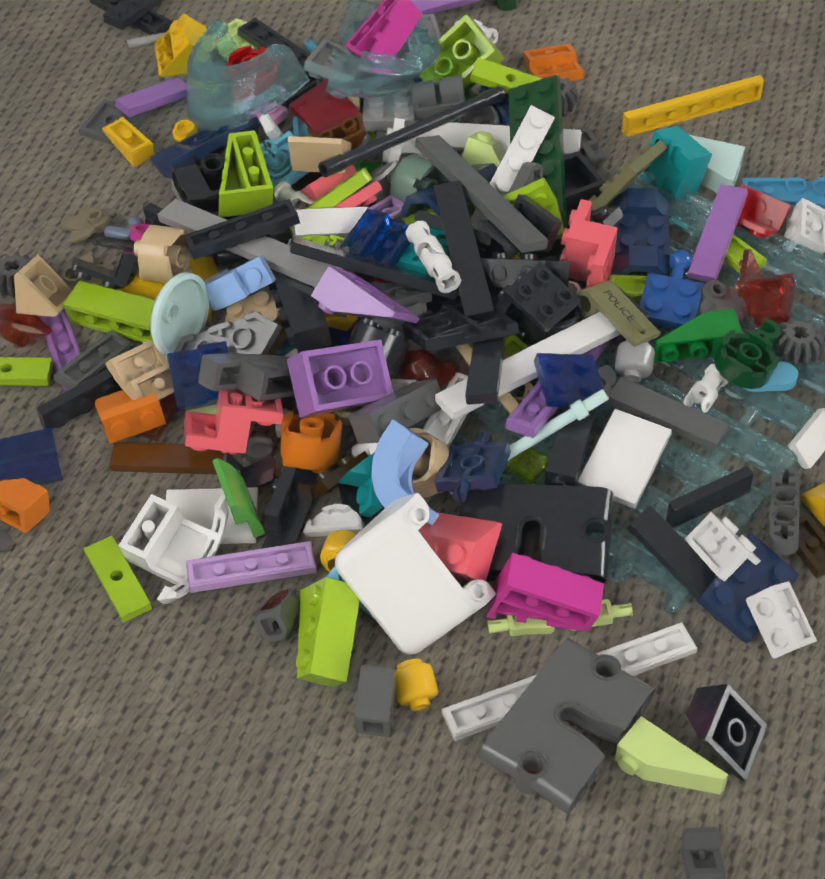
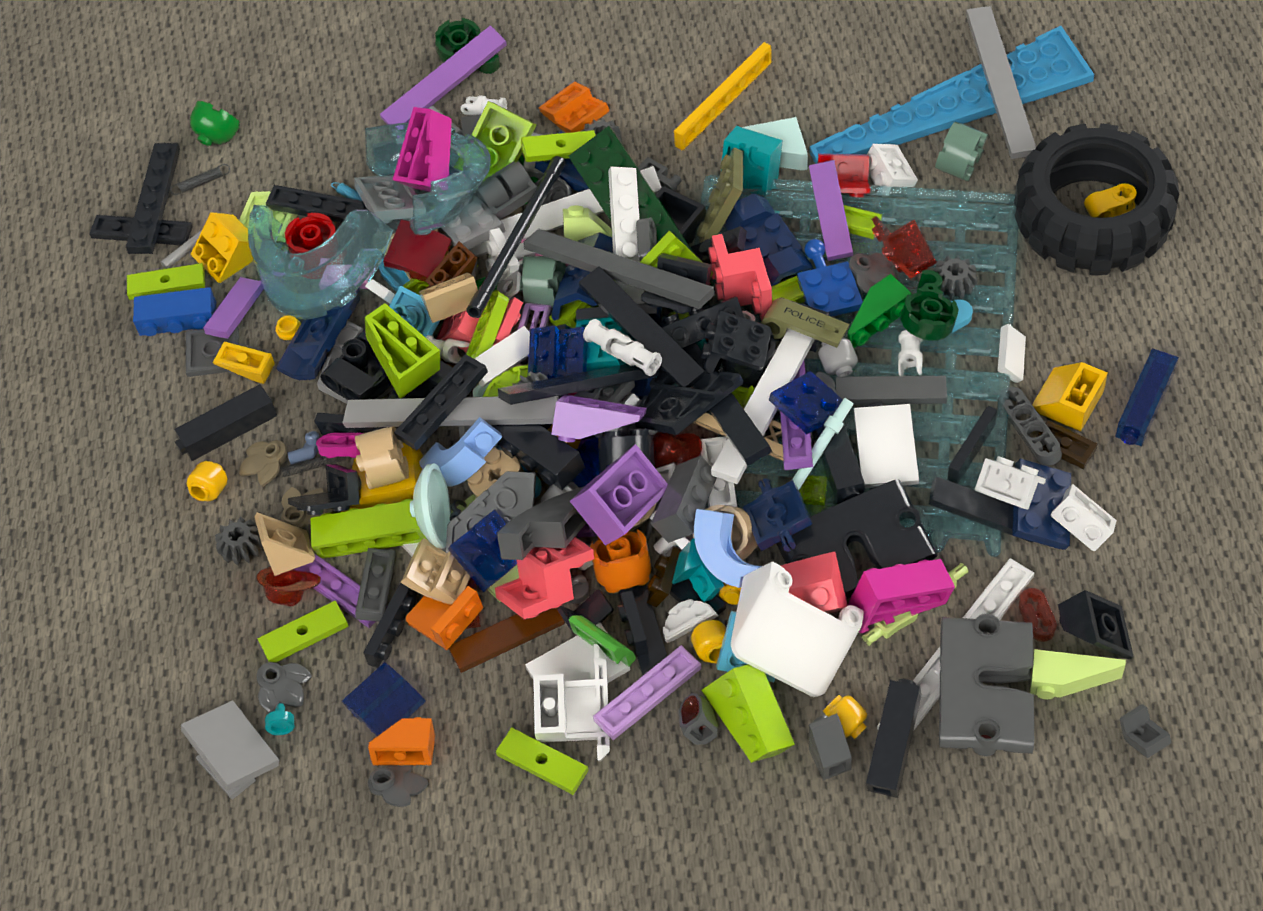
camera: 25 degrees left, 5 degrees up
(26, 217) = (206, 481): none -> yellow head
(76, 179) = (225, 423): none -> black brick
(103, 78) = (173, 311): none -> blue brick
(117, 55) = (166, 280): none -> lime tile
(444, 726) = (894, 738): none -> black brick
(680, 690) = (1043, 612): none -> clear red beam

